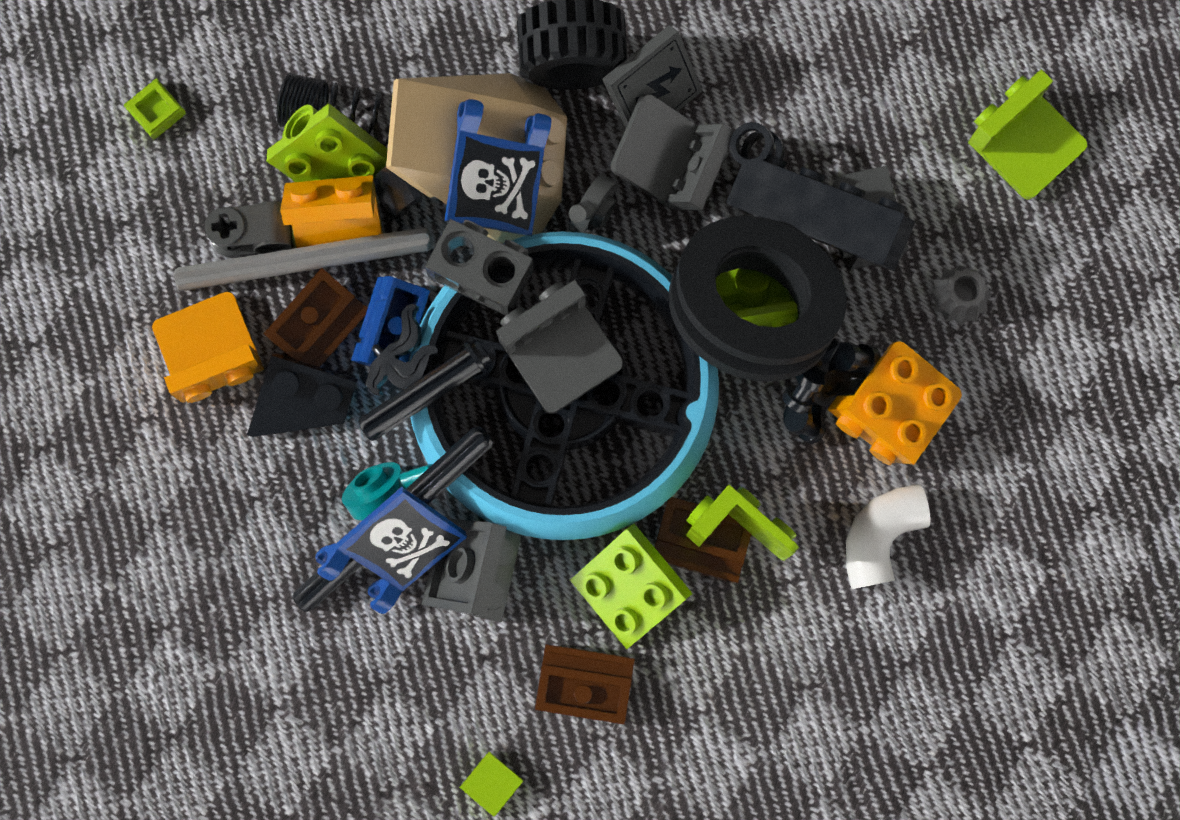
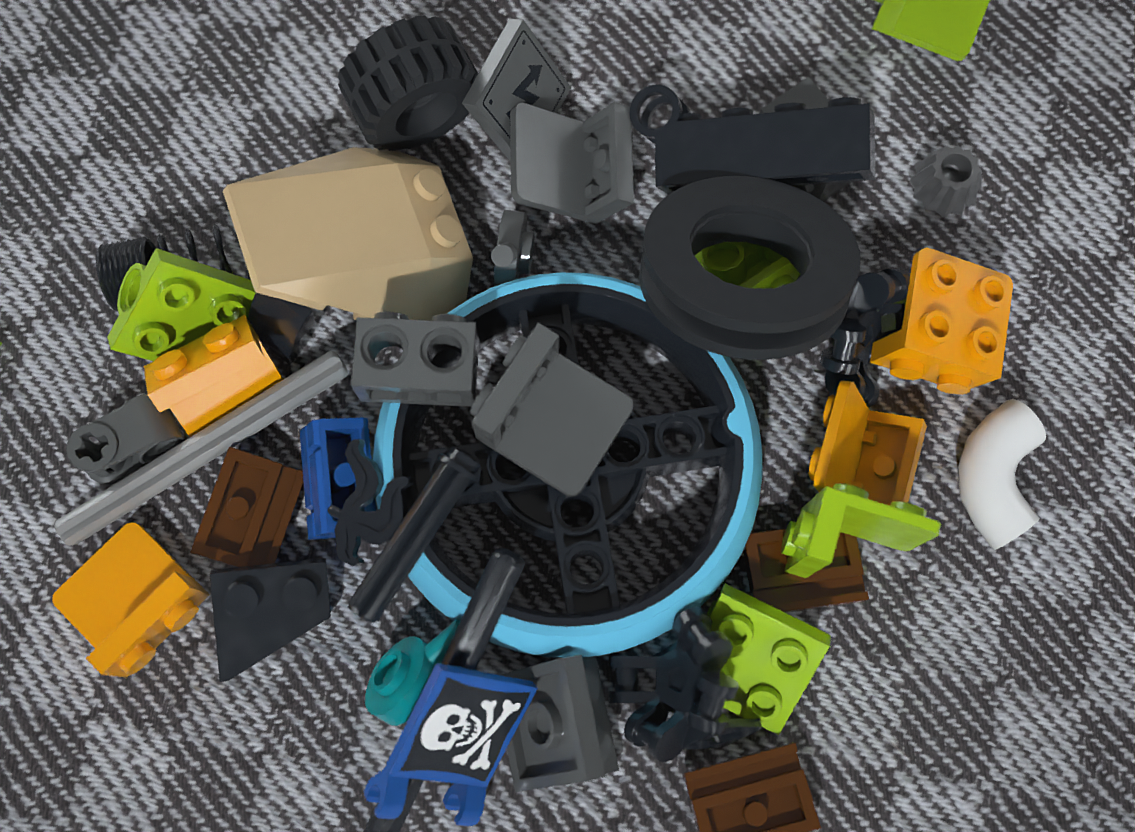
camera: 25 degrees left, 5 degrees down
(494, 177) = (387, 254): flag -> none
(573, 585) = (687, 686): none -> black piece
(787, 474) = (867, 448): none -> light orange bracket

